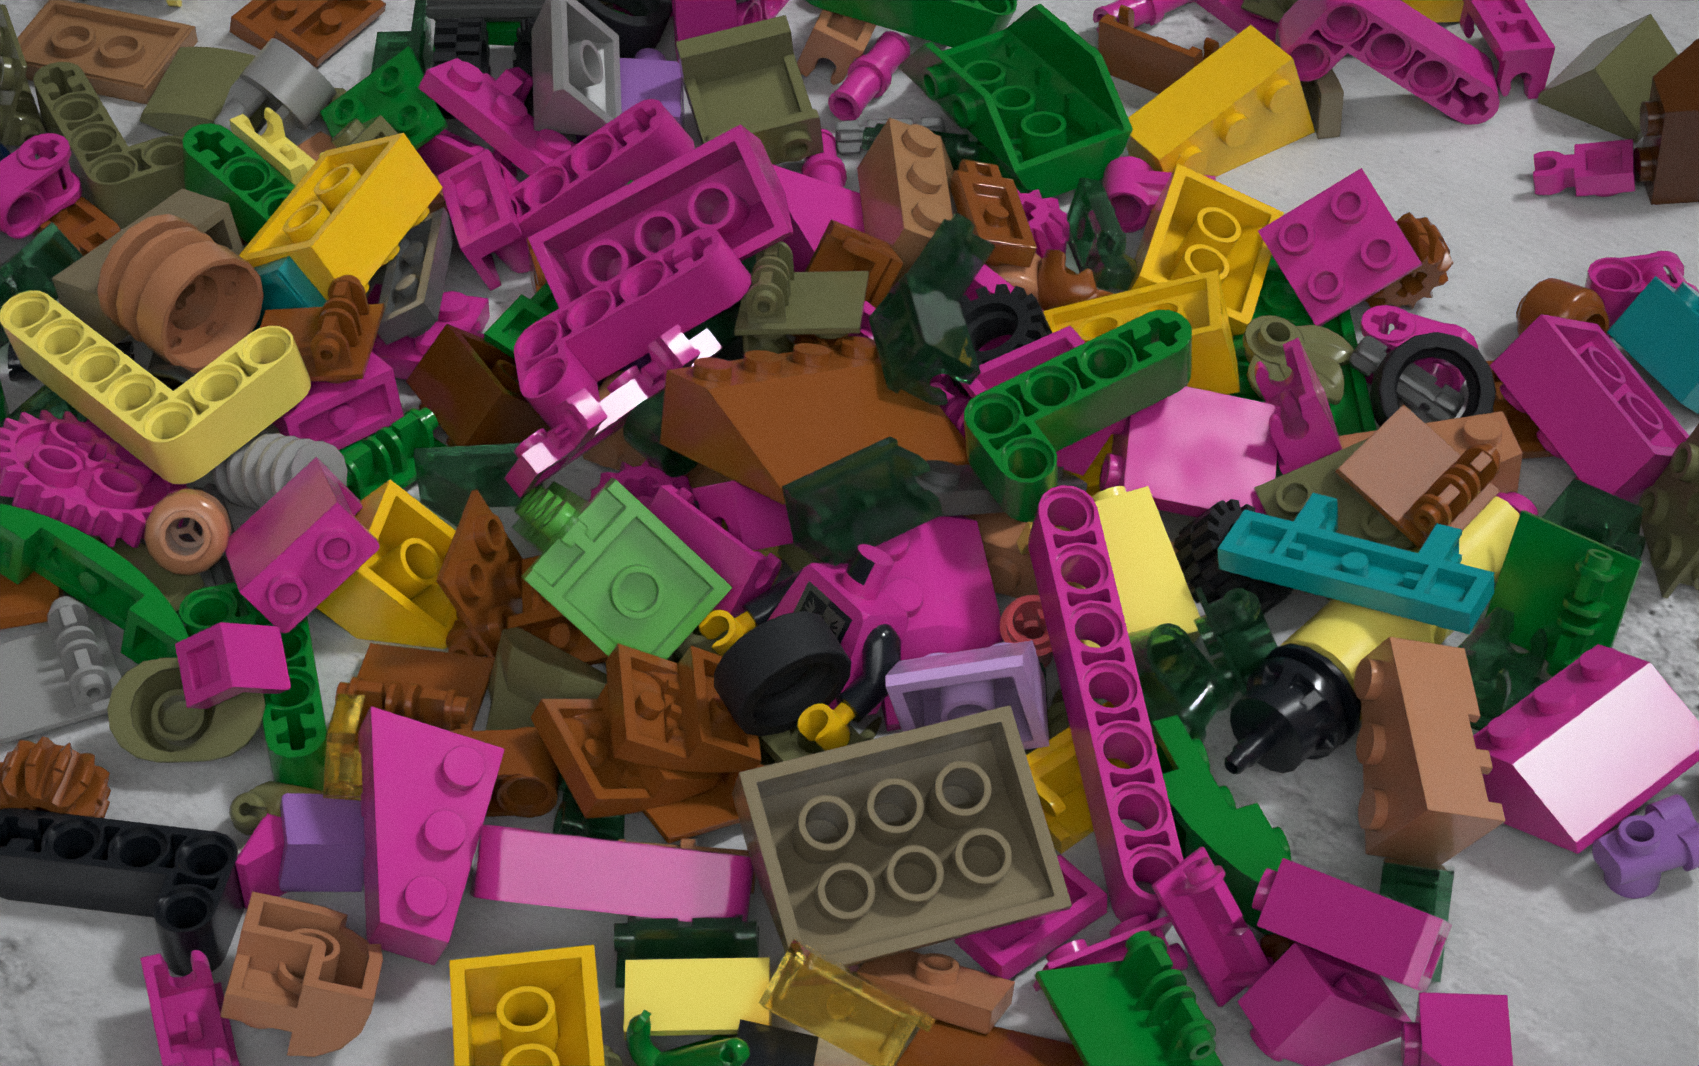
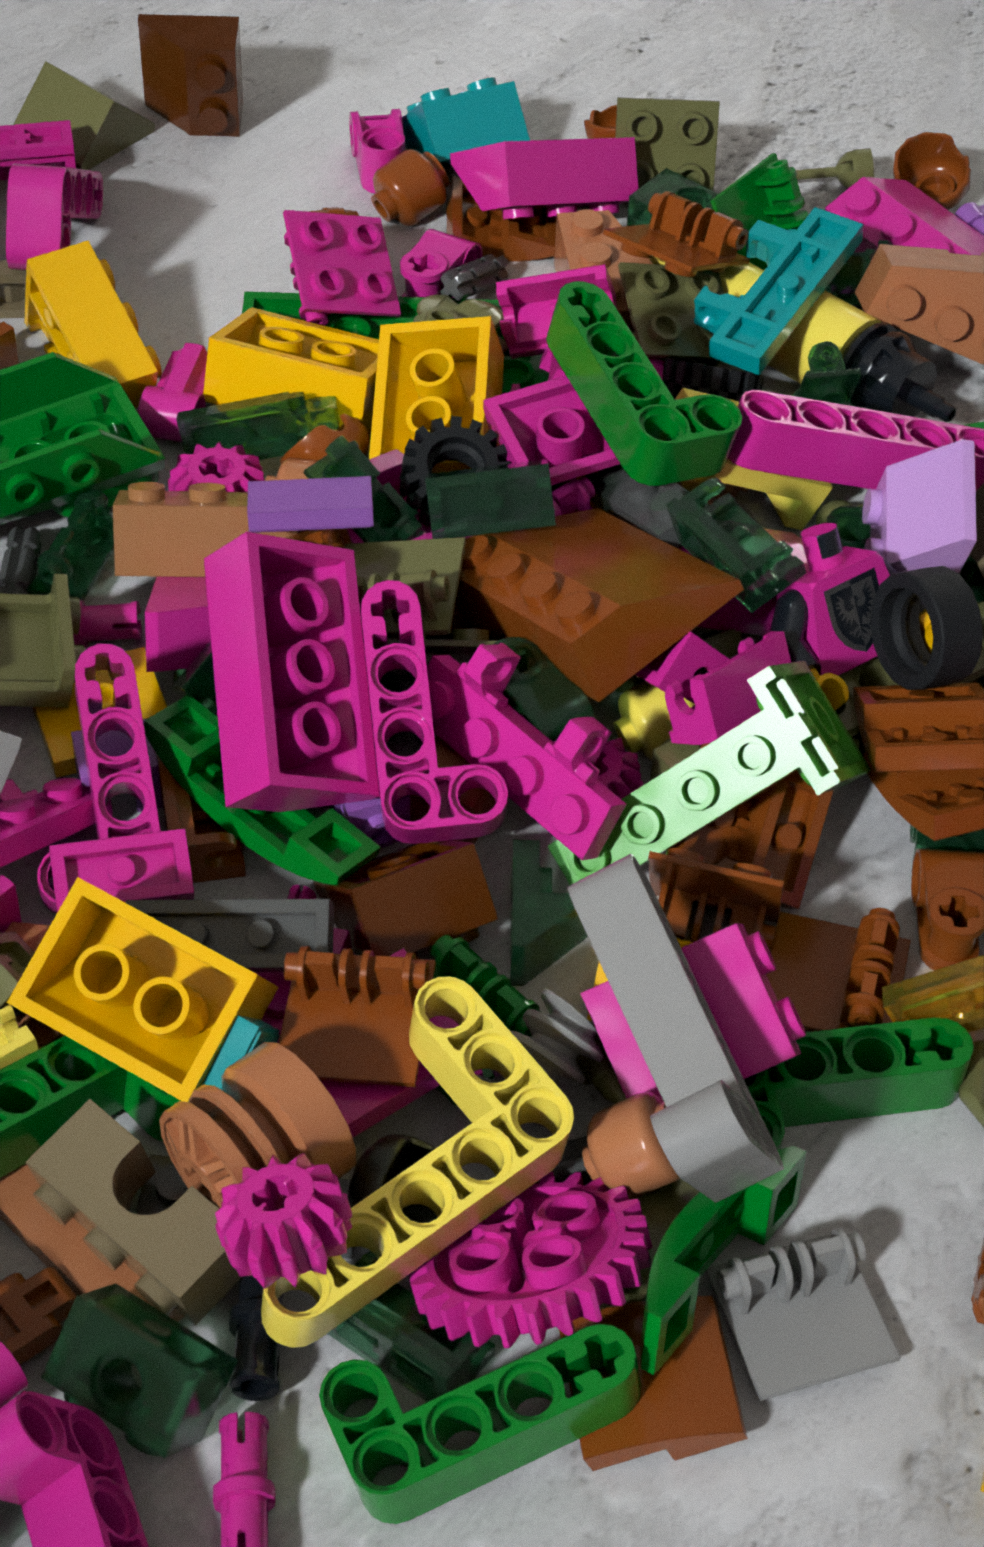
camera: 90 degrees left, 5 degrees up
(58, 273) = (283, 1220): none -> dark pink gear
(155, 725) = (897, 1147): olive piece -> none
(210, 487) = (709, 1118): none -> light grey beam
(230, 662) = (877, 1080): dark pink panel -> none
(532, 671) = (842, 867): olive slope -> none
(887, 222) = (310, 504): none -> medium lavender tile
(995, 211) = (244, 463): dark orange hinge -> none
(1025, 621) = (797, 506): coral cone -> none
(1440, 346) = (507, 247): black tyre -> none
(1592, 169) = (206, 143): dark pink plate -> none

